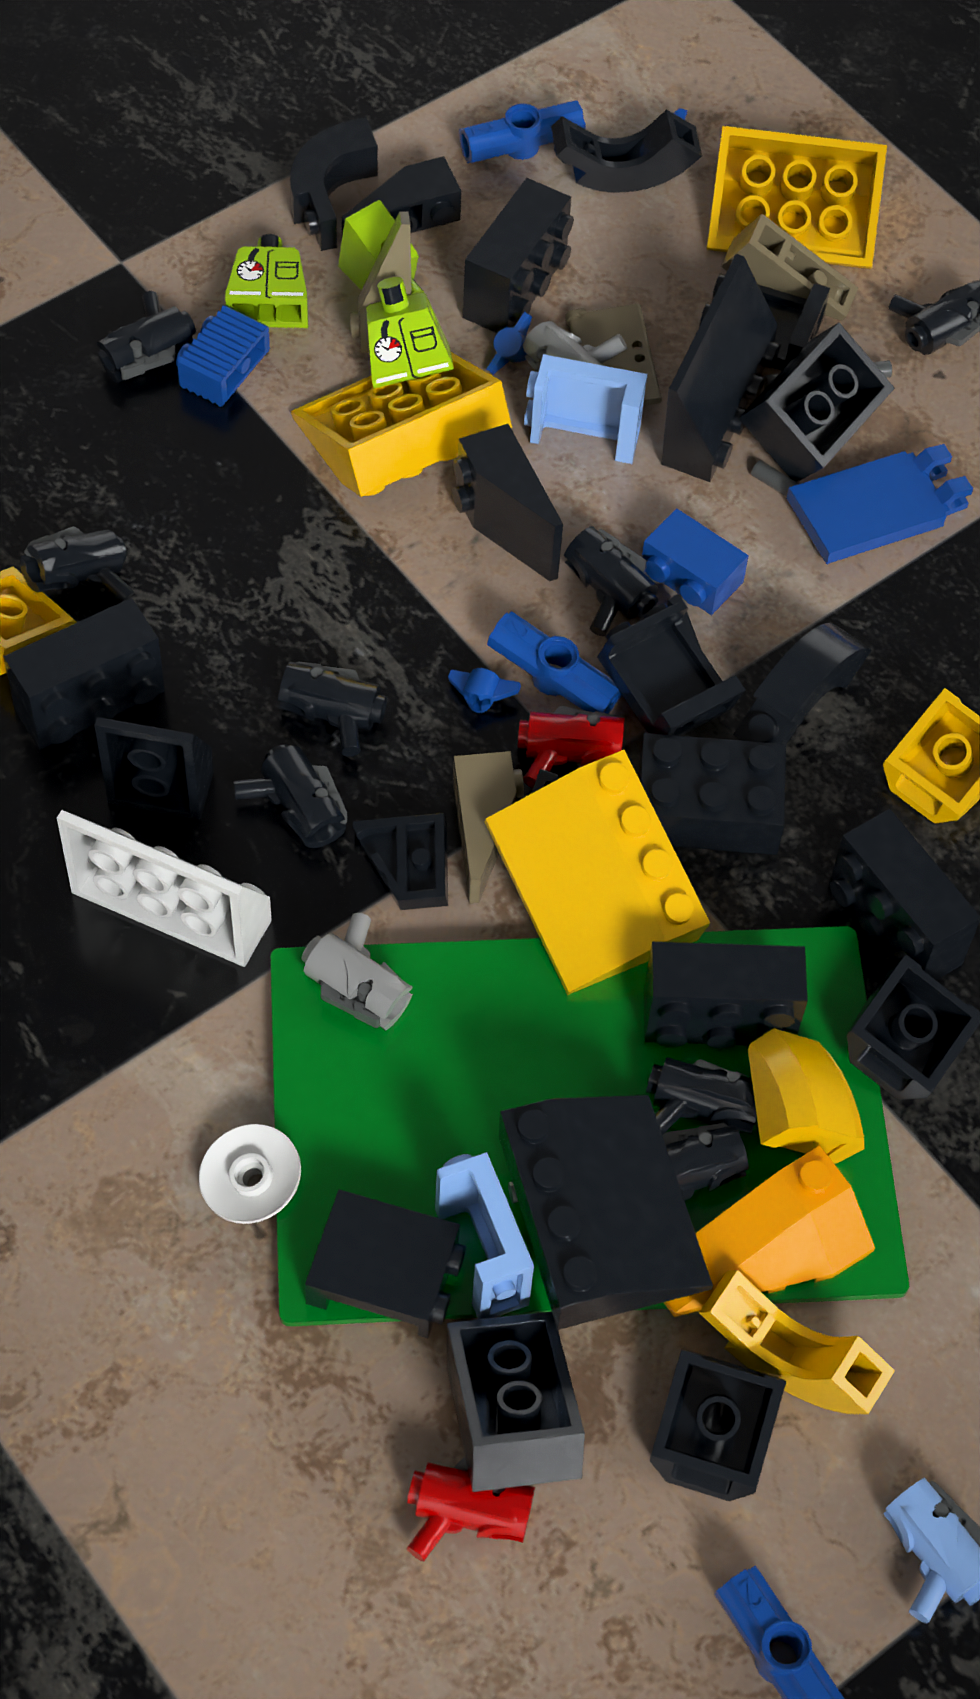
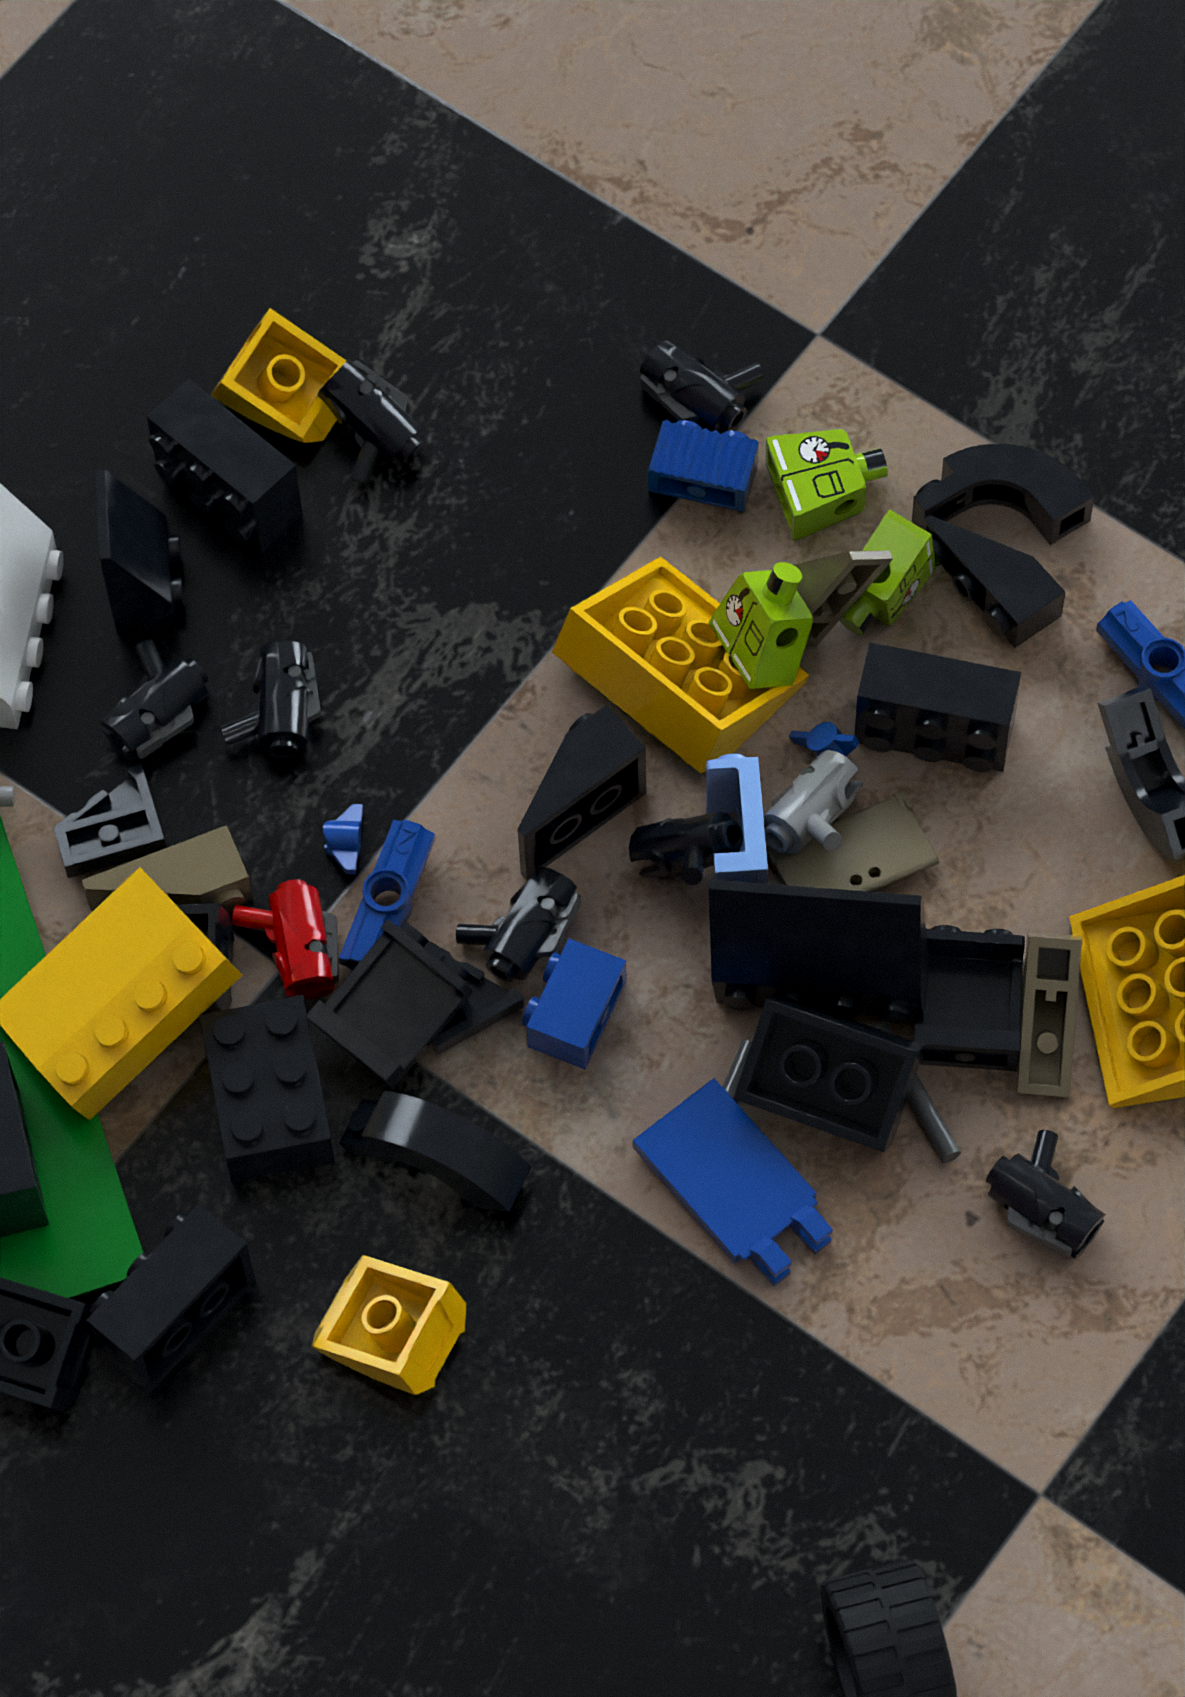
camera: 80 degrees right, 5 degrees up
(587, 438) = (684, 845): none -> black piece

